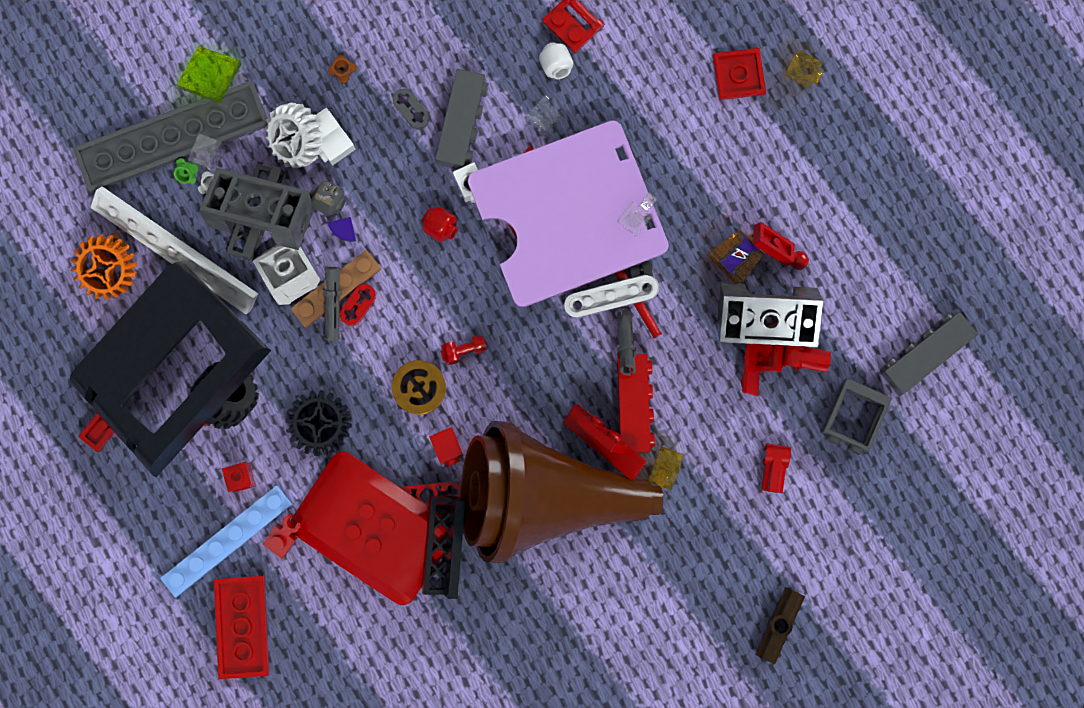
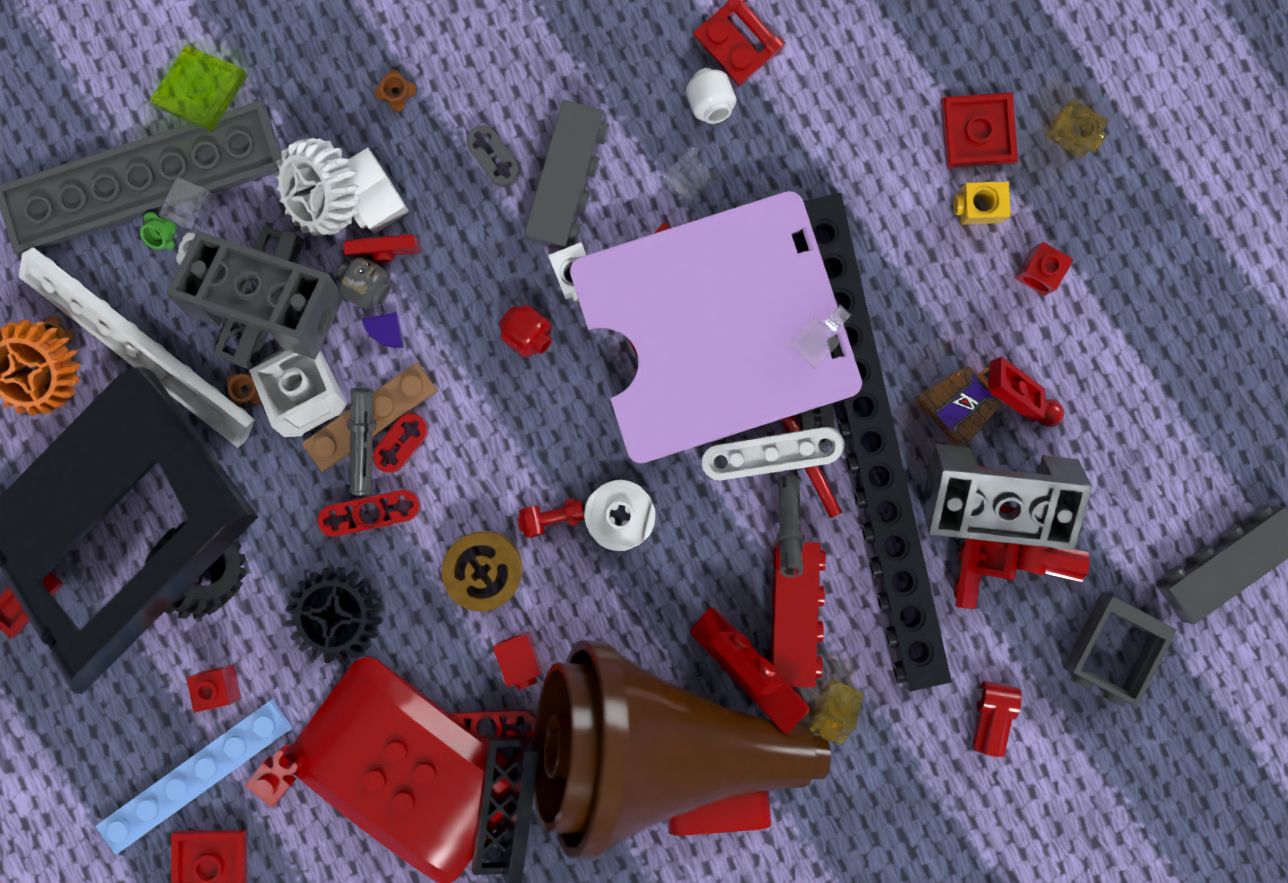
camera: 10 degrees right, 5 degrees up
(244, 269) = (235, 389): none -> dark orange plate
(339, 174) = (382, 248): none -> red plate
(343, 344) = (346, 527): none -> red beam
(500, 354) = (603, 527): none -> white plate
(590, 542) = (729, 815): none -> red beam
(640, 135) = (932, 666): none -> black brick
(751, 115) = (997, 199): none -> yellow brick
(787, 163) = (1044, 268): none -> red brick

